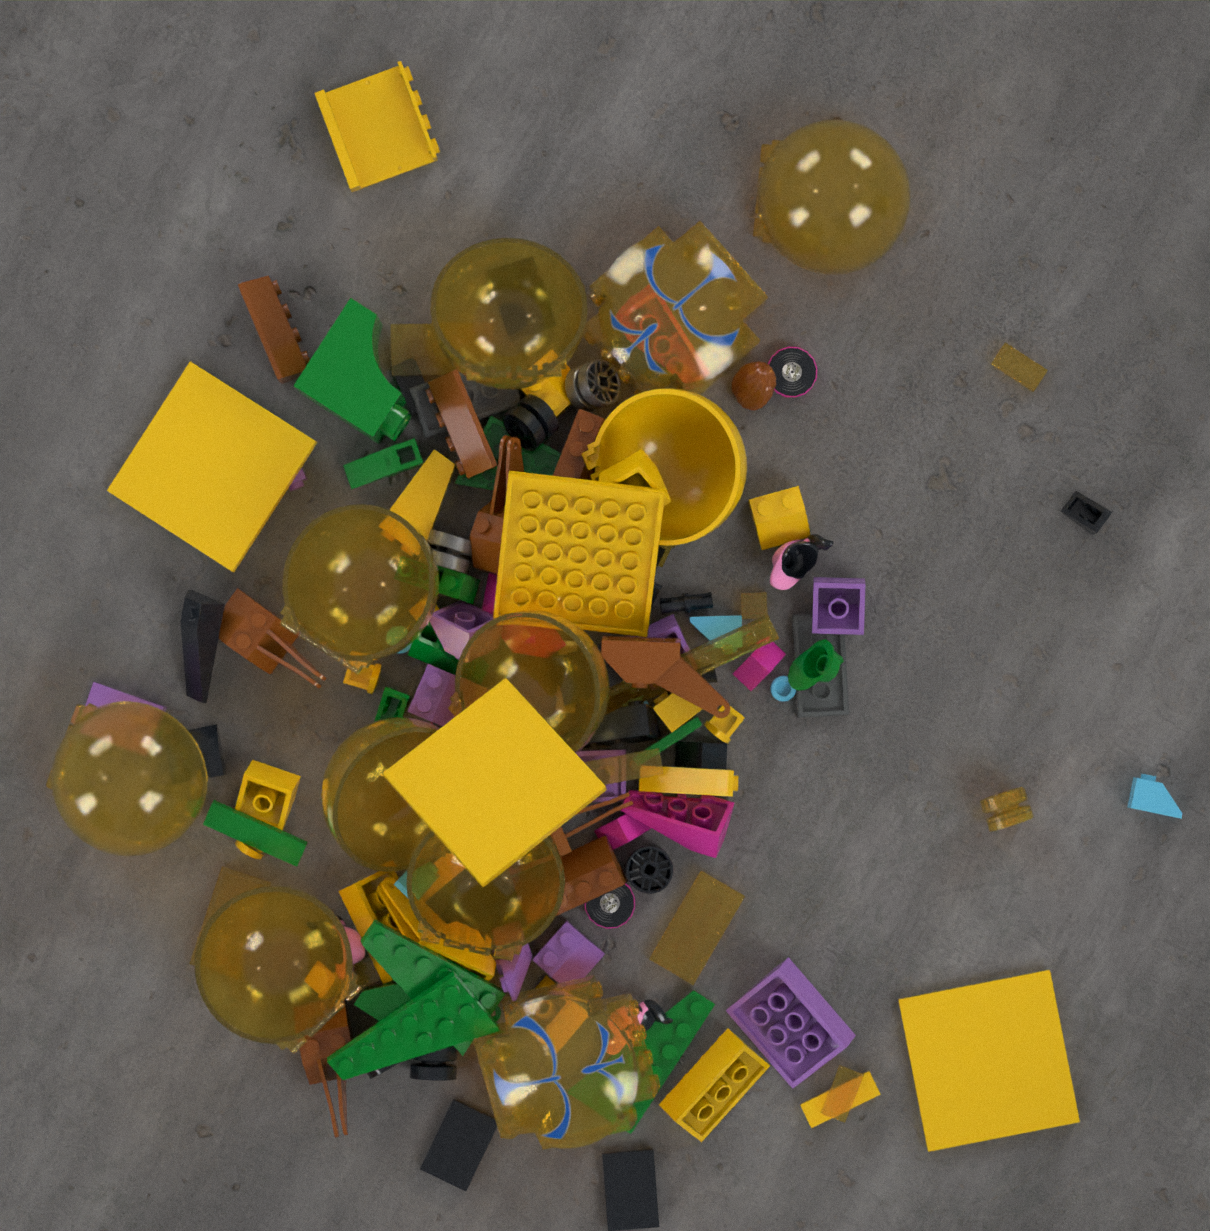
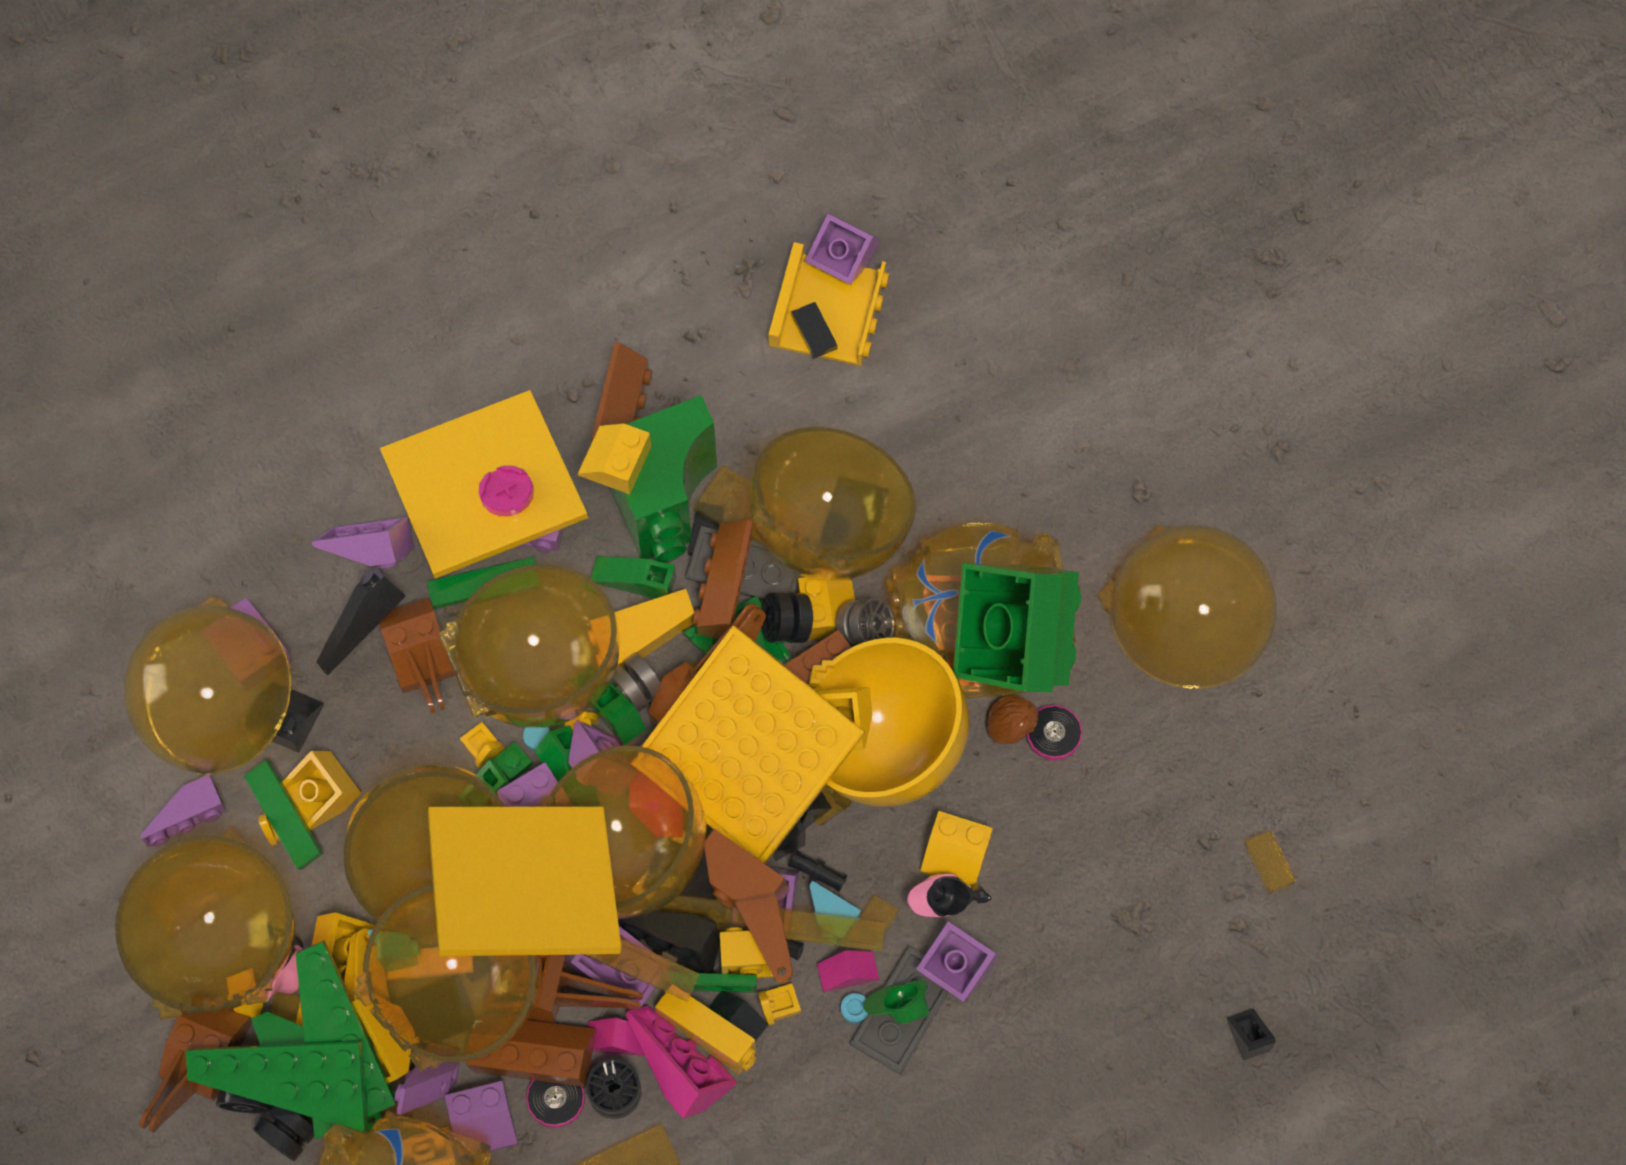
camera: 40 degrees right, 20 degrees down
(159, 577) = (369, 542): none -> medium lavender slope
(178, 873) = (190, 806): none -> medium lavender slope
(238, 464) = (506, 491): none -> dark pink tile
(270, 545) = (461, 587): none -> green tile
(321, 397) = (616, 456): none -> yellow slope
(356, 70) = (842, 249): none -> medium lavender slope
(381, 156) = (814, 330): none -> black tile
(395, 672) = (513, 762): none -> green plate
(729, 333) = (1016, 626): none -> green brick

